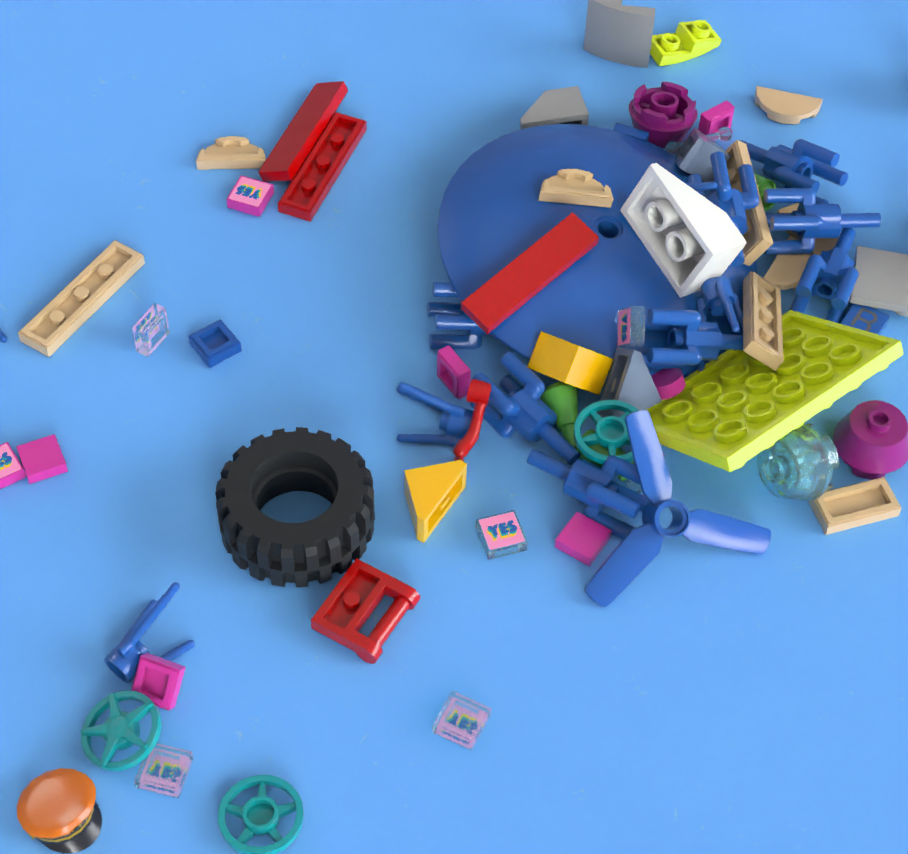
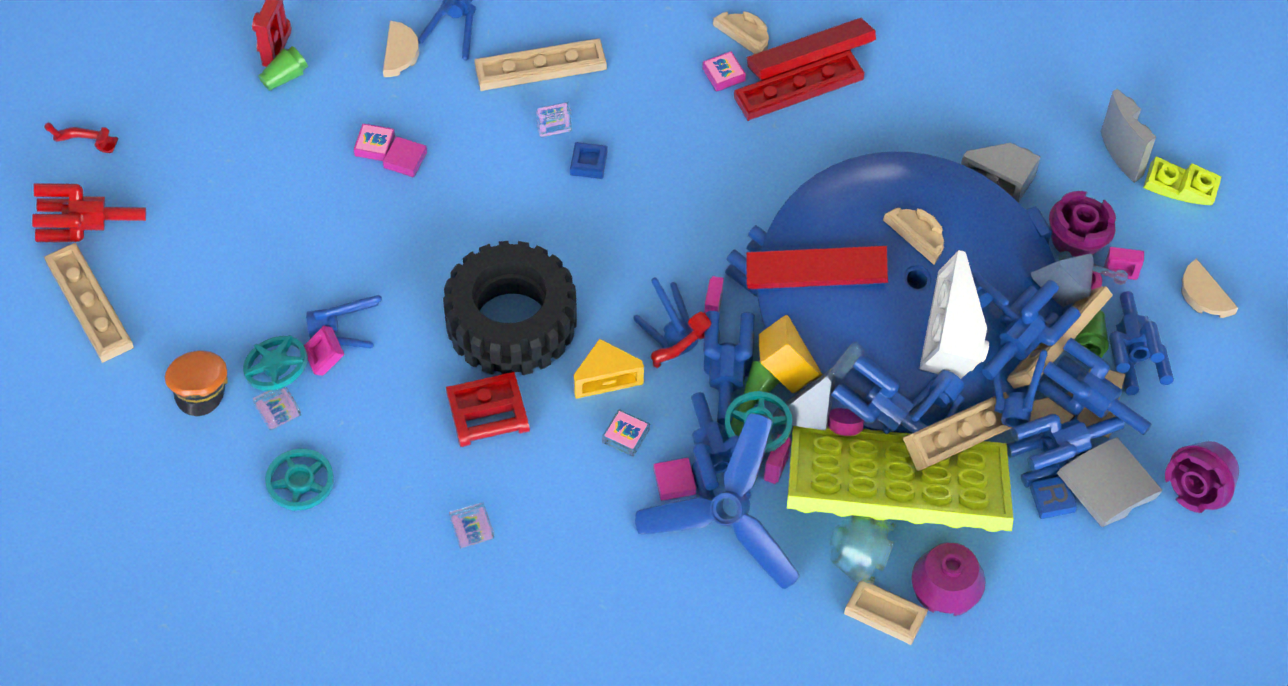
camera: 45 degrees right, 5 degrees up
(775, 272) = (1018, 406): none -> blue plant

